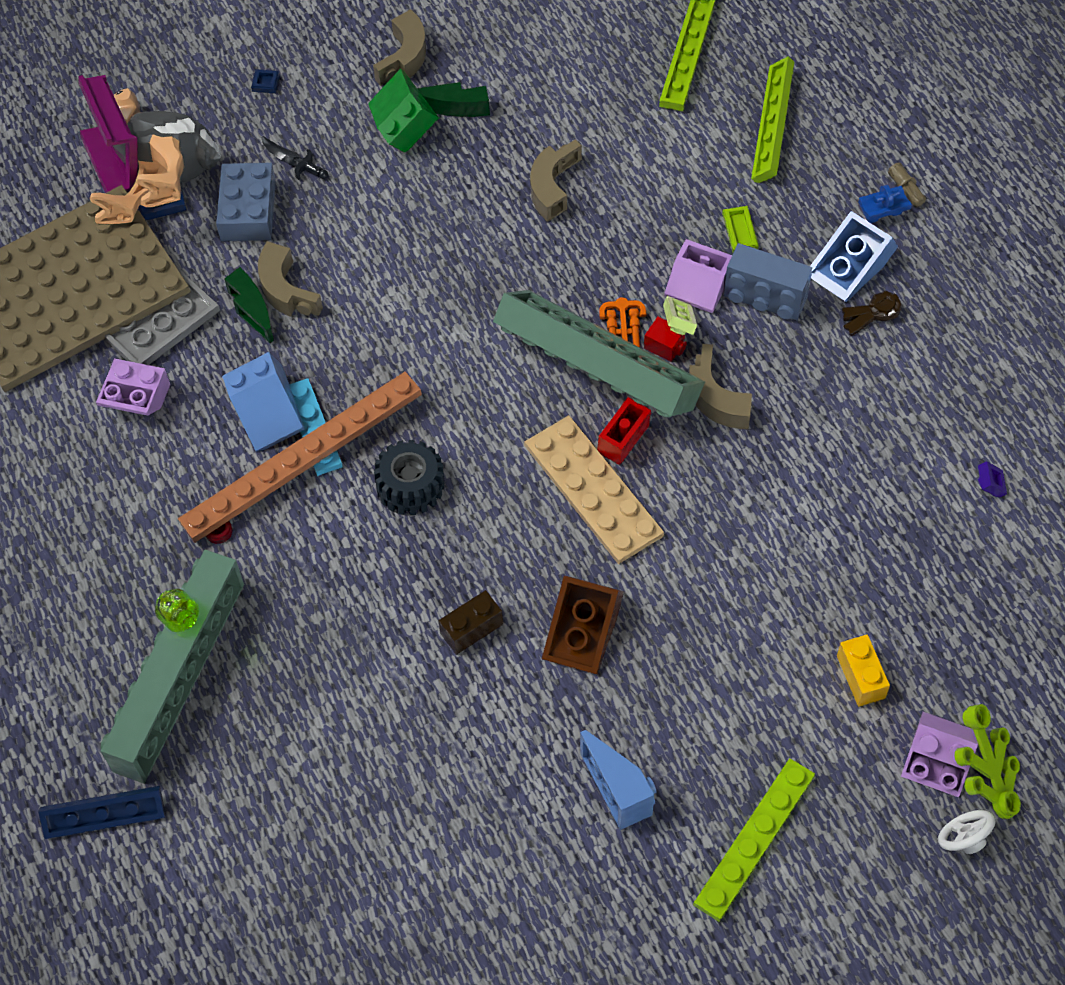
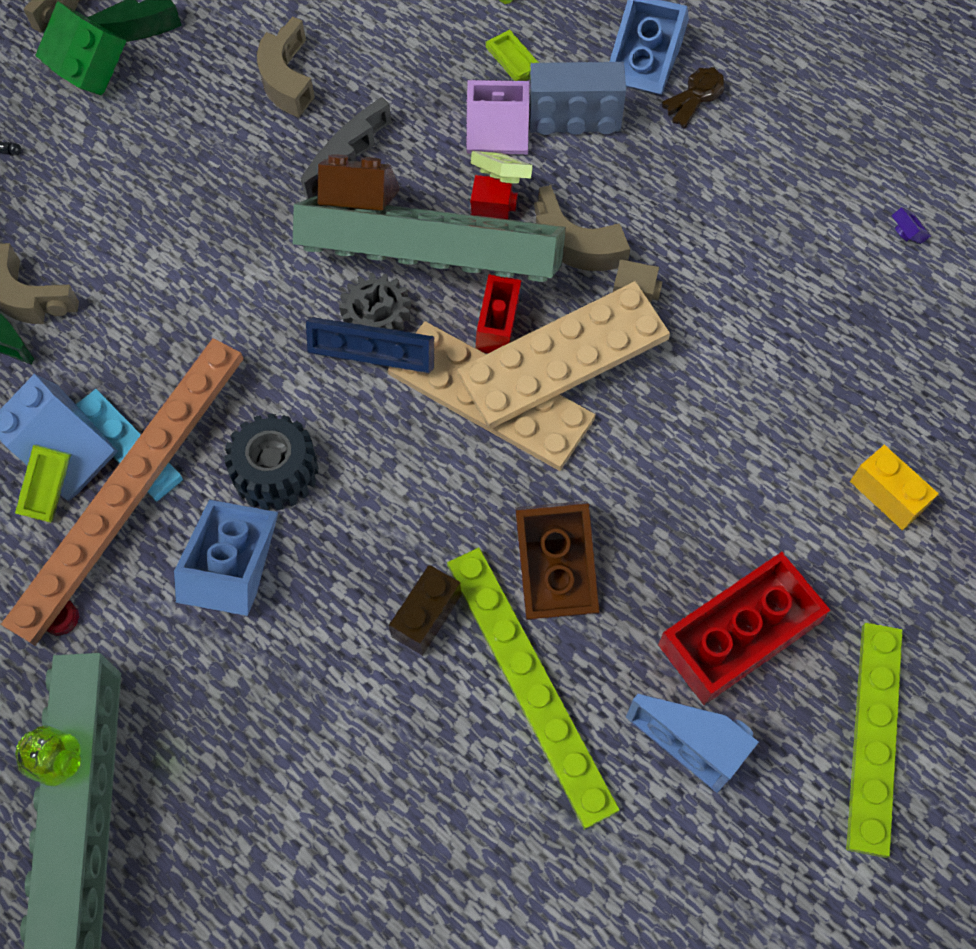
camera: 25 degrees left, 5 degrees up
(244, 432) = (43, 483): none -> lime tile
(347, 532) = (225, 558): none -> medium blue slope
(518, 418) = (370, 344): none -> dark blue plate
(522, 706) = (533, 690): none -> lime plate
(536, 391) = (374, 296): none -> dark grey gear
(559, 293) = (356, 183): none -> reddish brown slope
(563, 263) = (350, 140): none -> dark grey slope
(622, 305) = (426, 178): orange piece -> none
(658, 477) = (562, 354): none -> tan plate
(693, 723) = (743, 627): none -> red brick
(743, 446) = (644, 276): none -> dark tan brick

